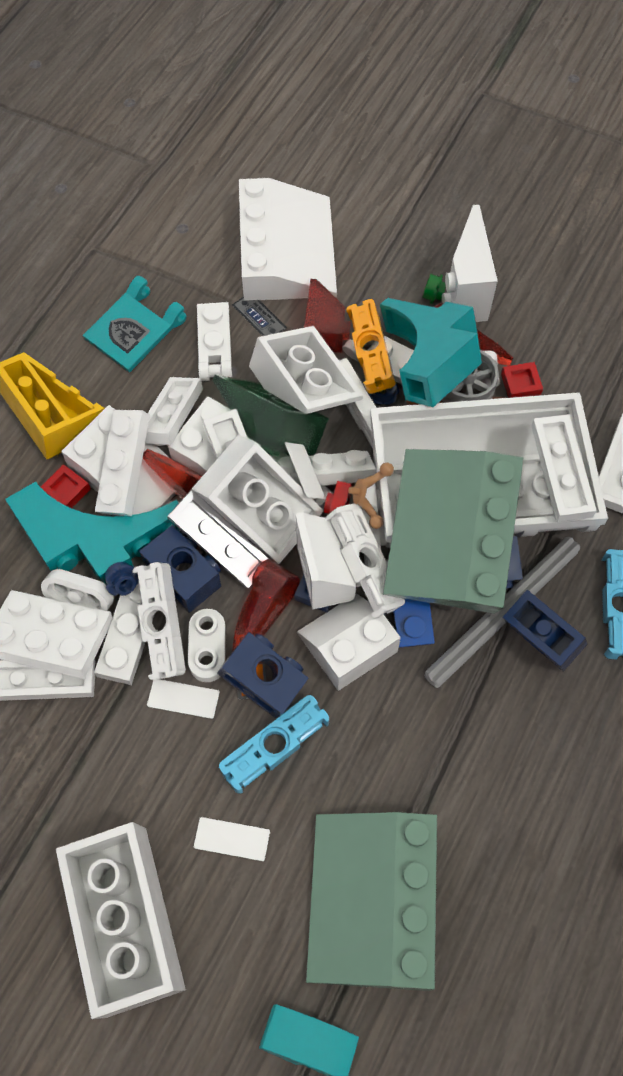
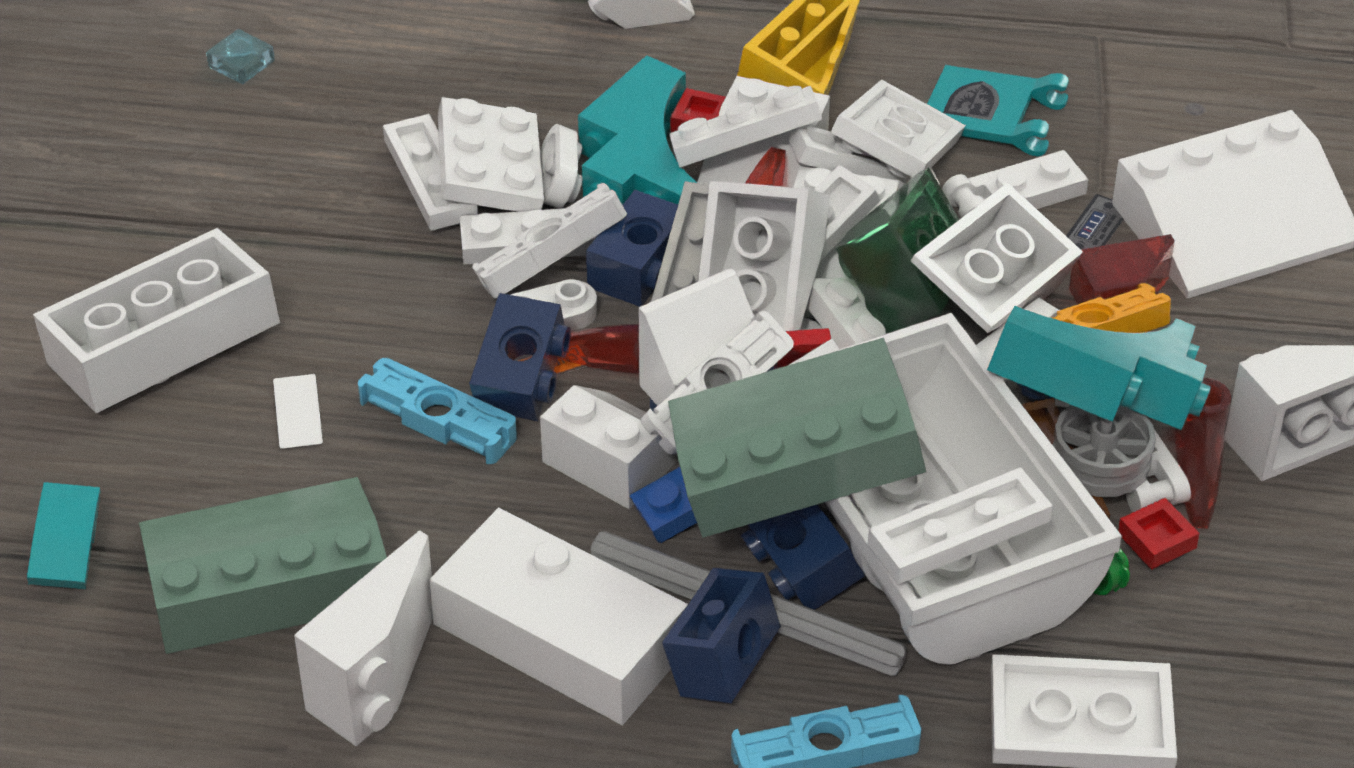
camera: 70 degrees right, 20 degrees down
(116, 574) = (585, 174): dark blue plate -> none
(154, 380) = (897, 130): none -> white plate
(183, 698) = (464, 314): white sticker -> none
(305, 471) = (830, 296): white sticker -> none
(360, 489) = (821, 332): medium nougat piece -> none
(493, 720) = (556, 614): none -> white brick
(504, 846) = (367, 643): none -> white slope

